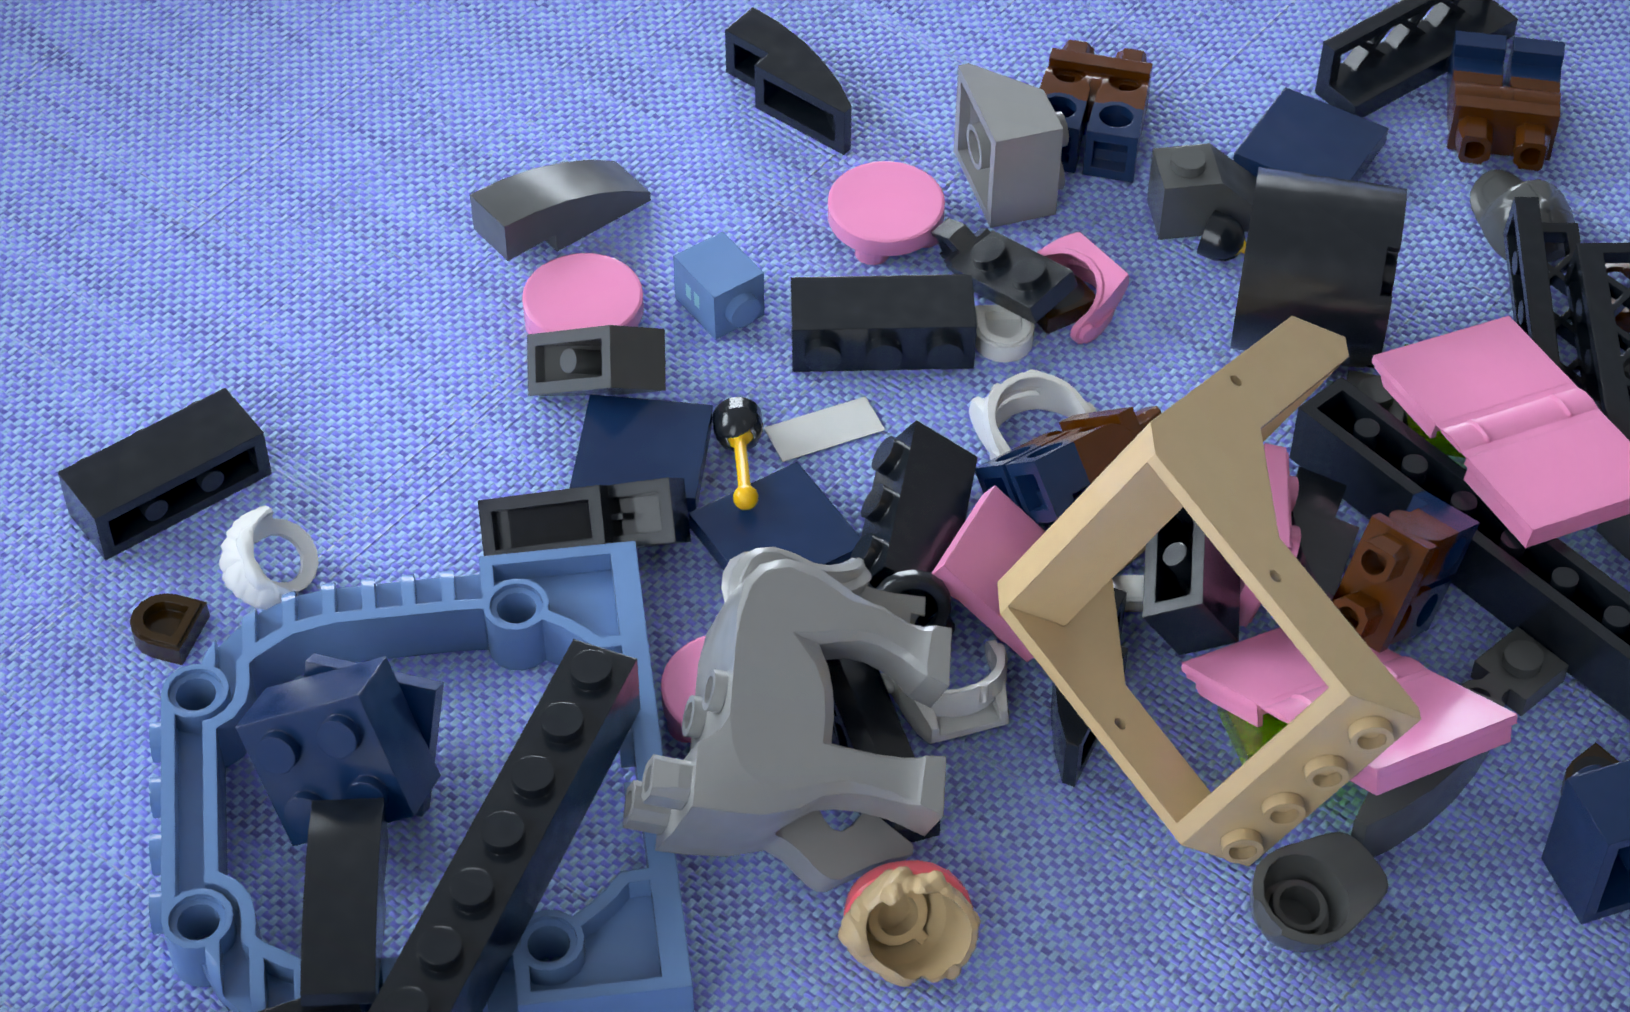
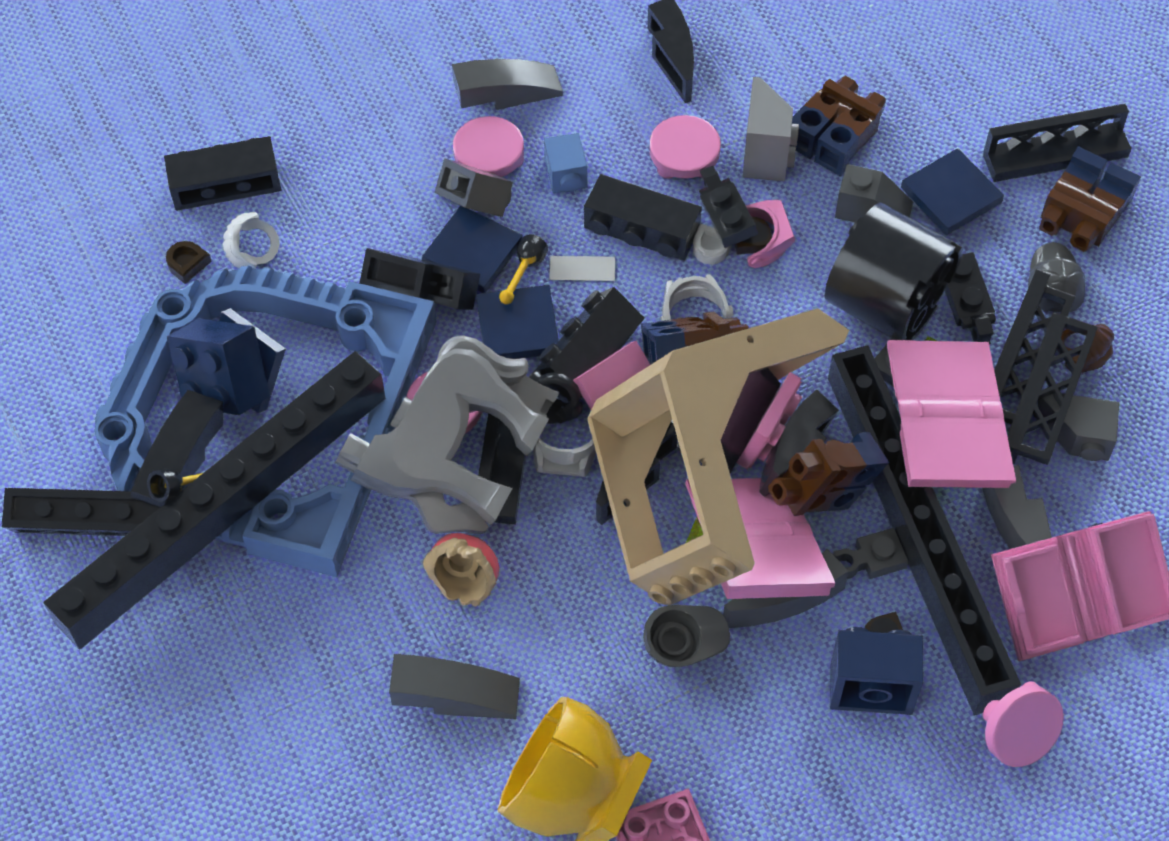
camera: 25 degrees right, 10 degrees up
(378, 949) = (171, 488): none -> black hinge
(1433, 291) = (971, 300): none -> black hinge

